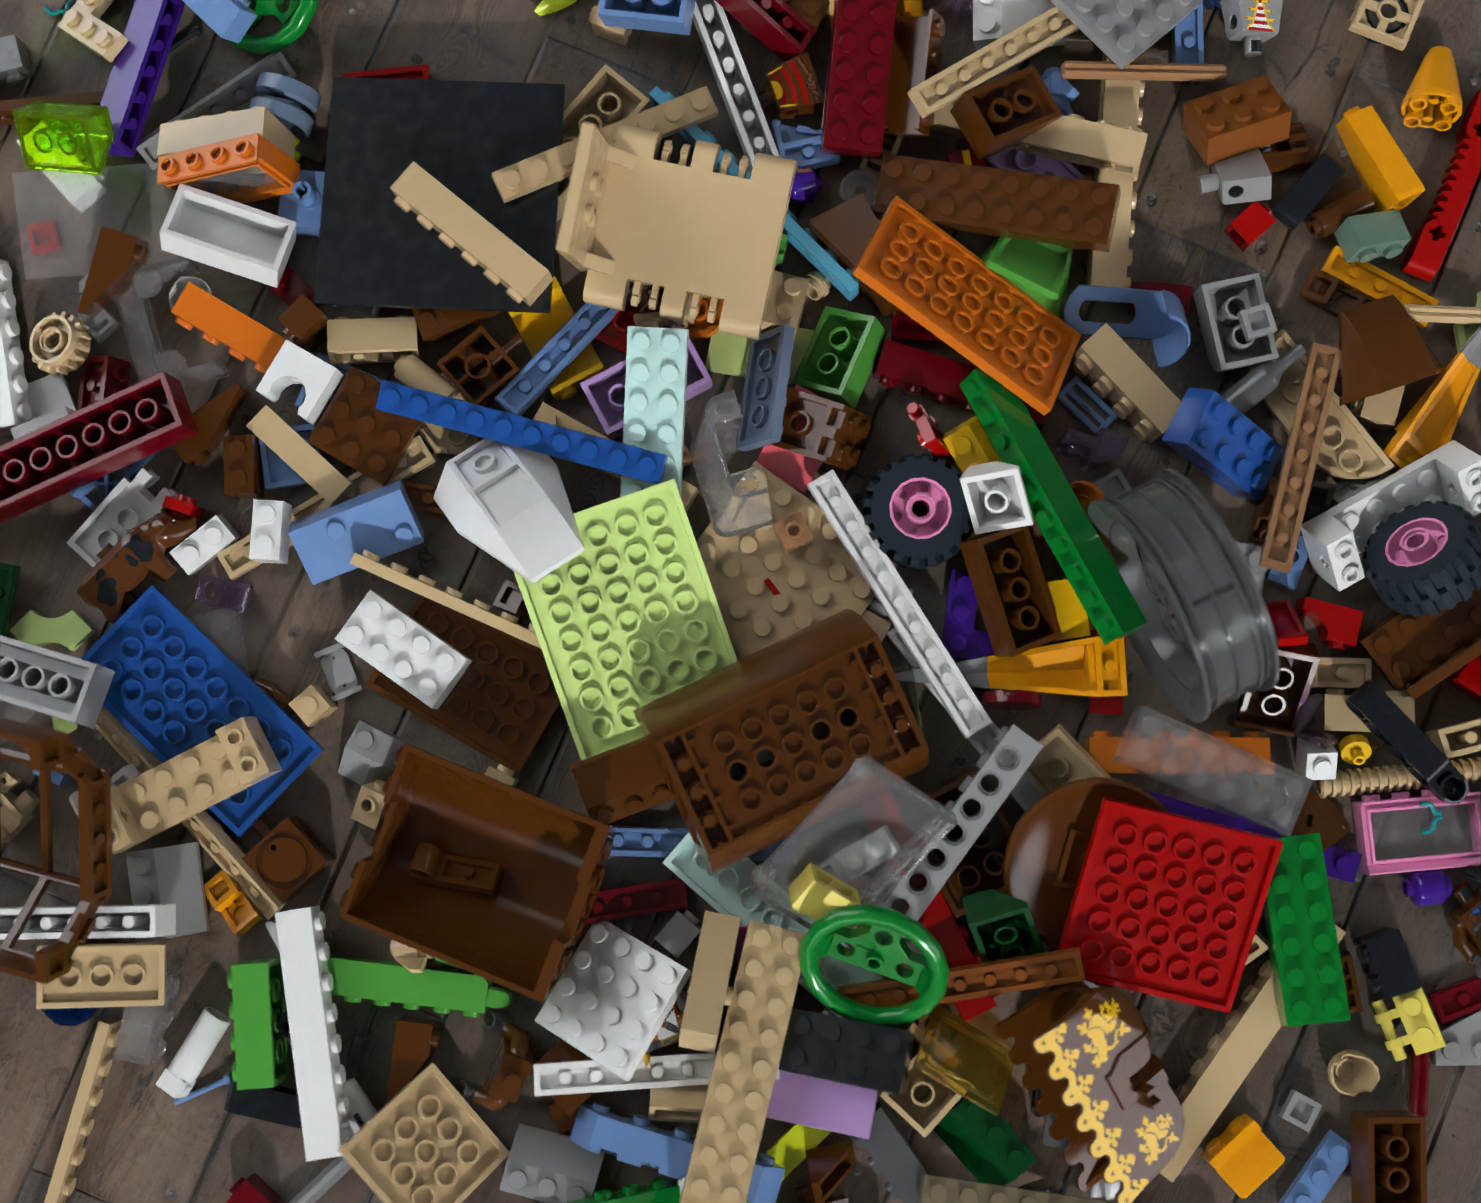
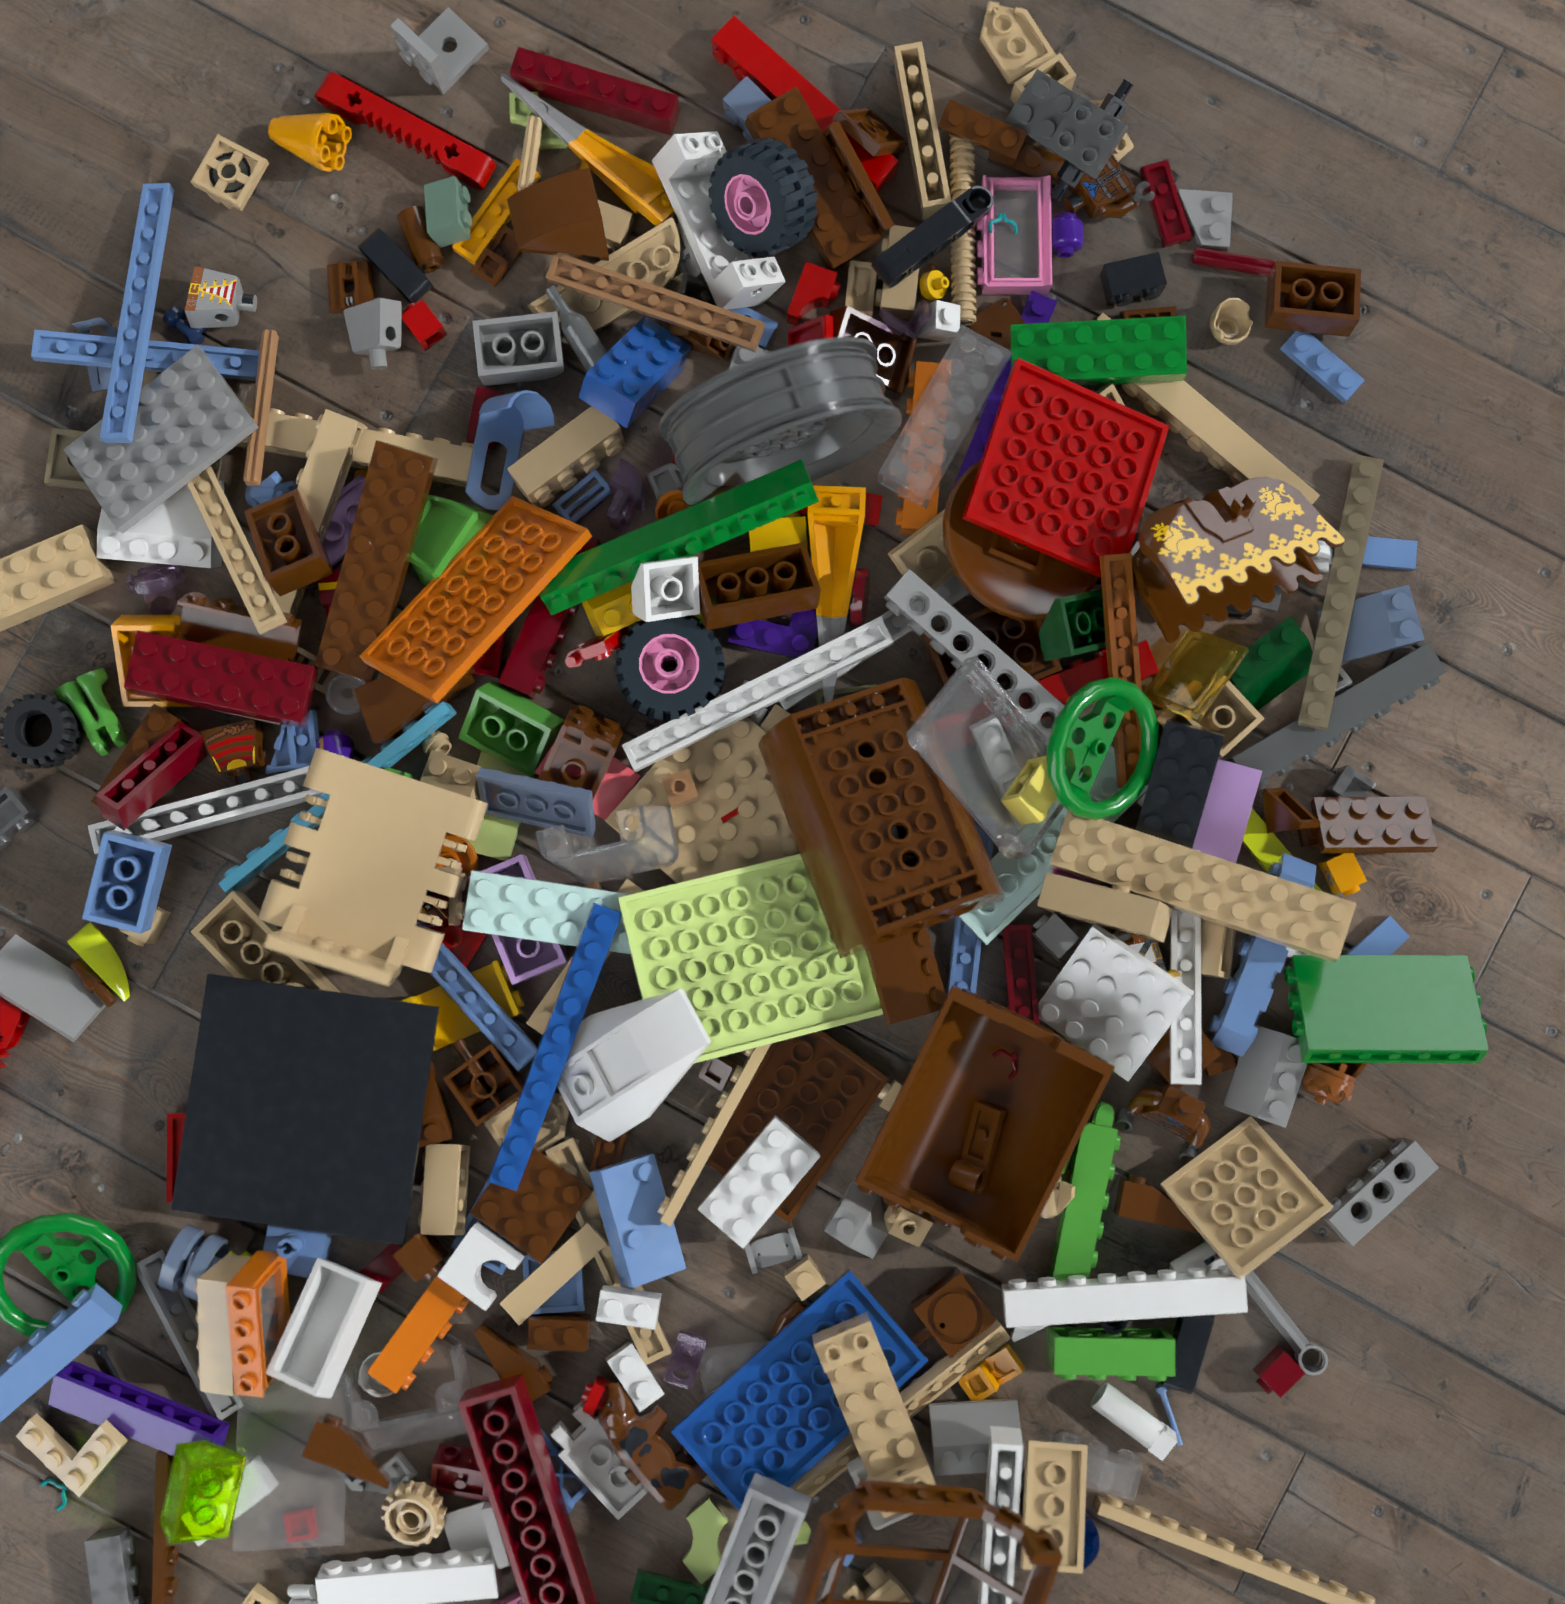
camera: 90 degrees left, 0 degrees up
(417, 374) = (486, 1145): tan brick -> none
(470, 233) = (351, 1078): tan brick -> none
(550, 895) = (1014, 1056): none -> dark red piece
(559, 161) = (282, 968): tan plate -> none
(1236, 120) = (319, 325): dark orange brick -> none
(1243, 1156) = (1299, 429): light orange bracket -> none
(1257, 321) = (520, 327): light grey plate -> none
(1300, 1110) = (1261, 373): light grey plate -> none
(1378, 159) = (373, 197): light orange slope -> none
(1418, 1022) = (1189, 257): light yellow plate -> none

